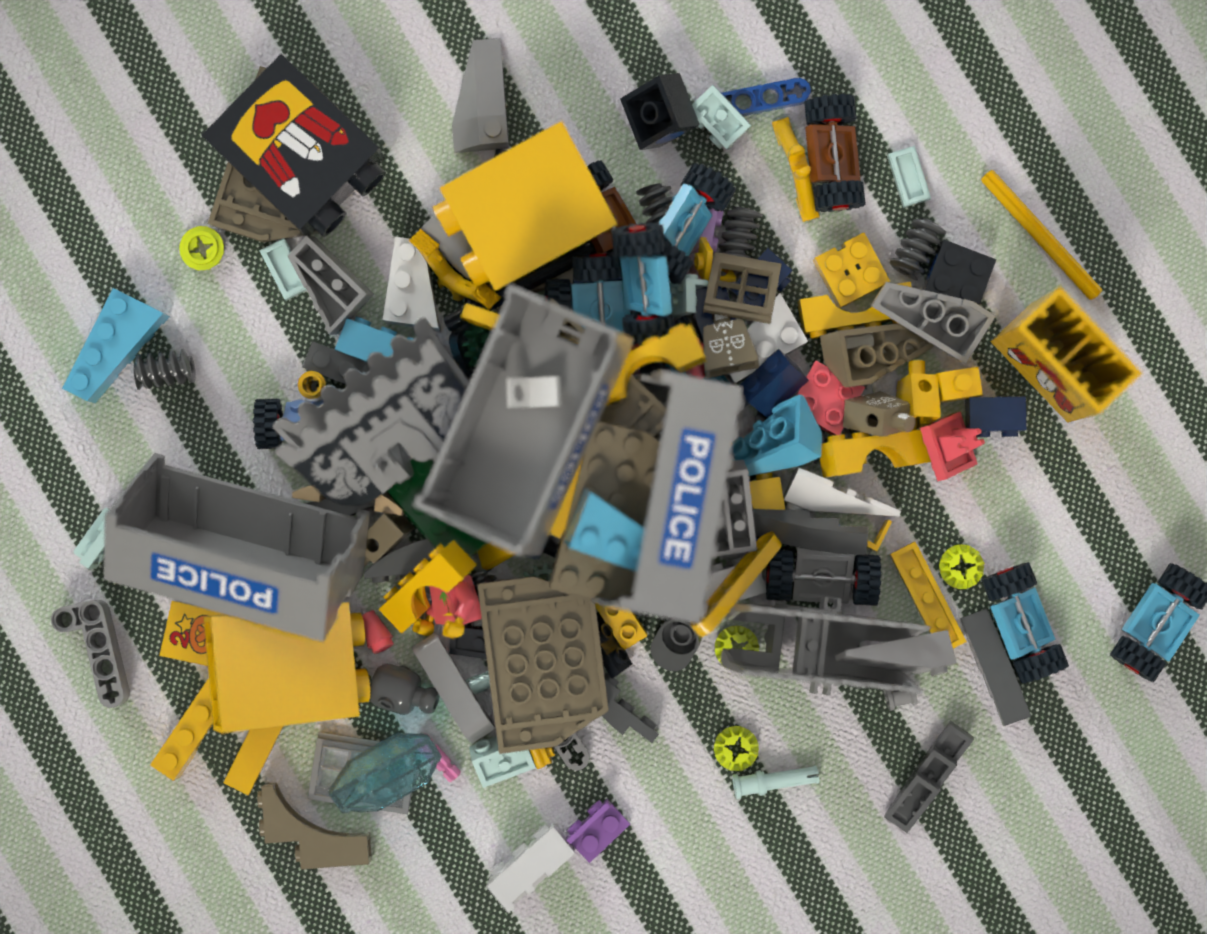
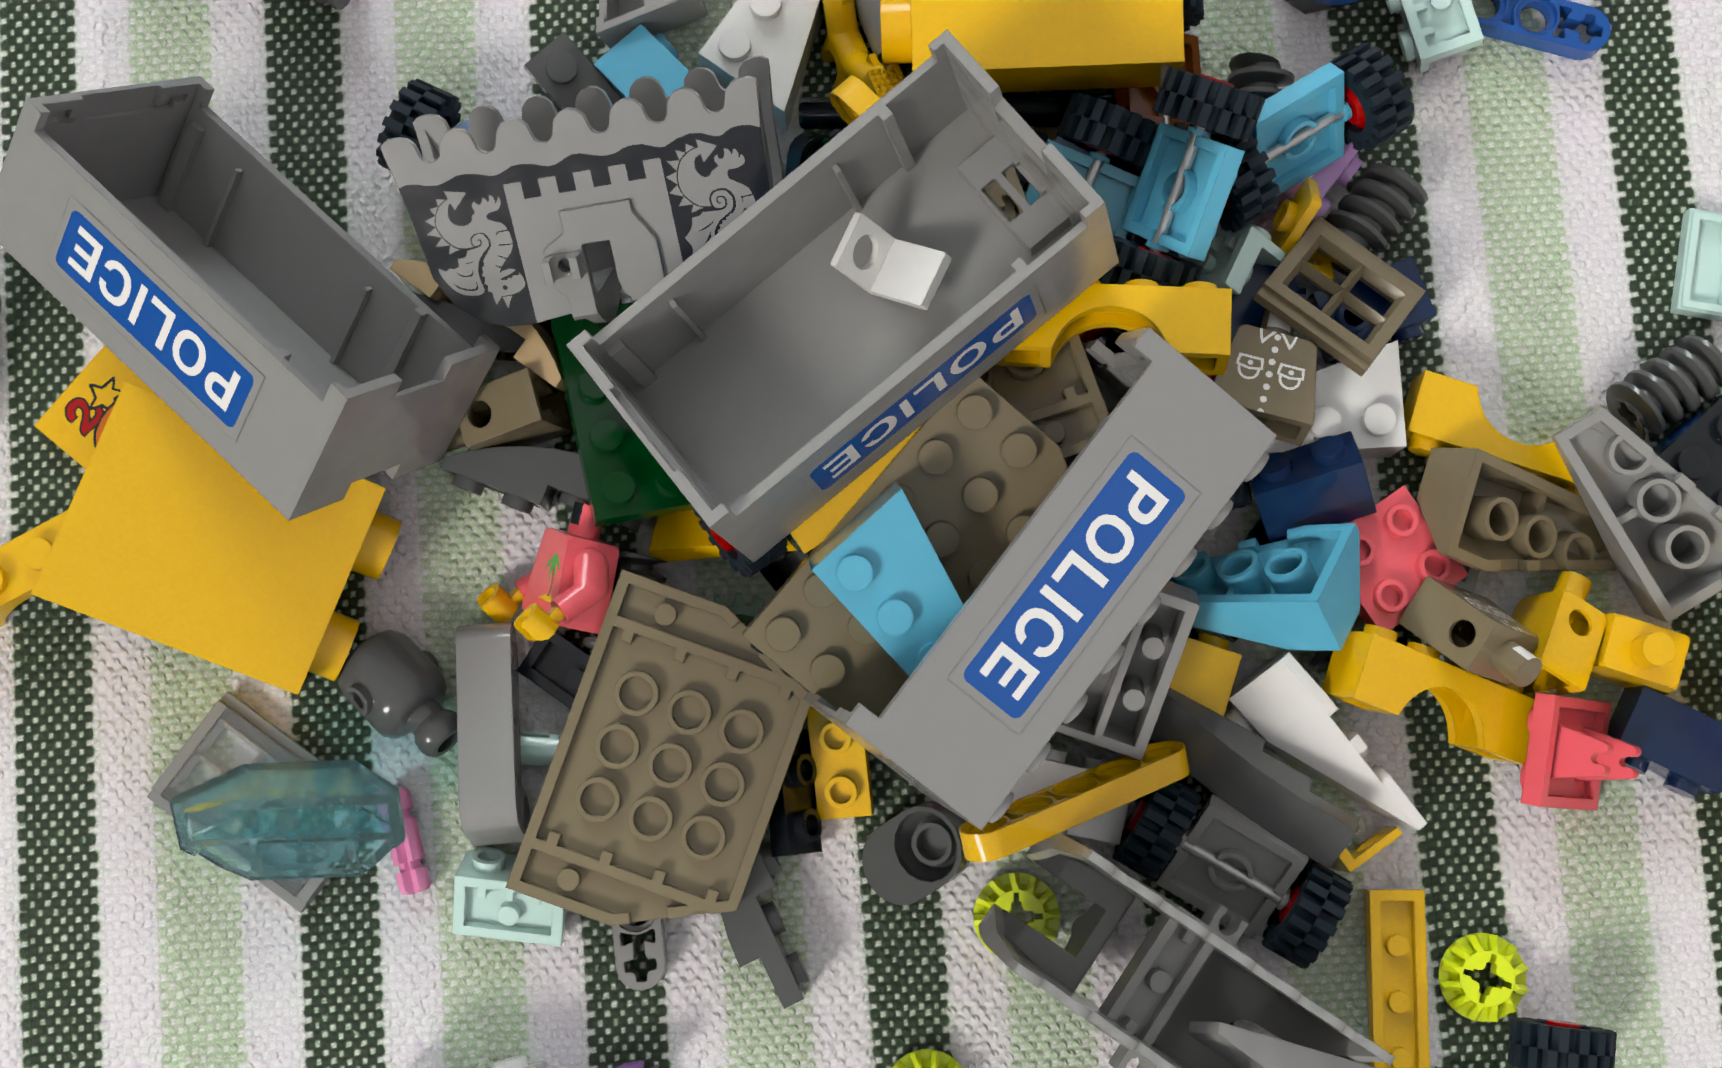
camera: 30 degrees right, 5 degrees down
(252, 758) = (92, 679): yellow tile -> none
(305, 382) = (516, 92): yellow cone -> none
(317, 845) = (116, 884): dark tan arch -> none
(376, 633) = (412, 572): coral cone -> none
(444, 571) = (573, 513): yellow arch -> none
(542, 756) = (583, 933): yellow plate -> none
(799, 168) = (1533, 152): yellow piece -> none
(833, 153) = (1602, 156): plate -> none
(851, 270) = (1535, 369): yellow piece -> none

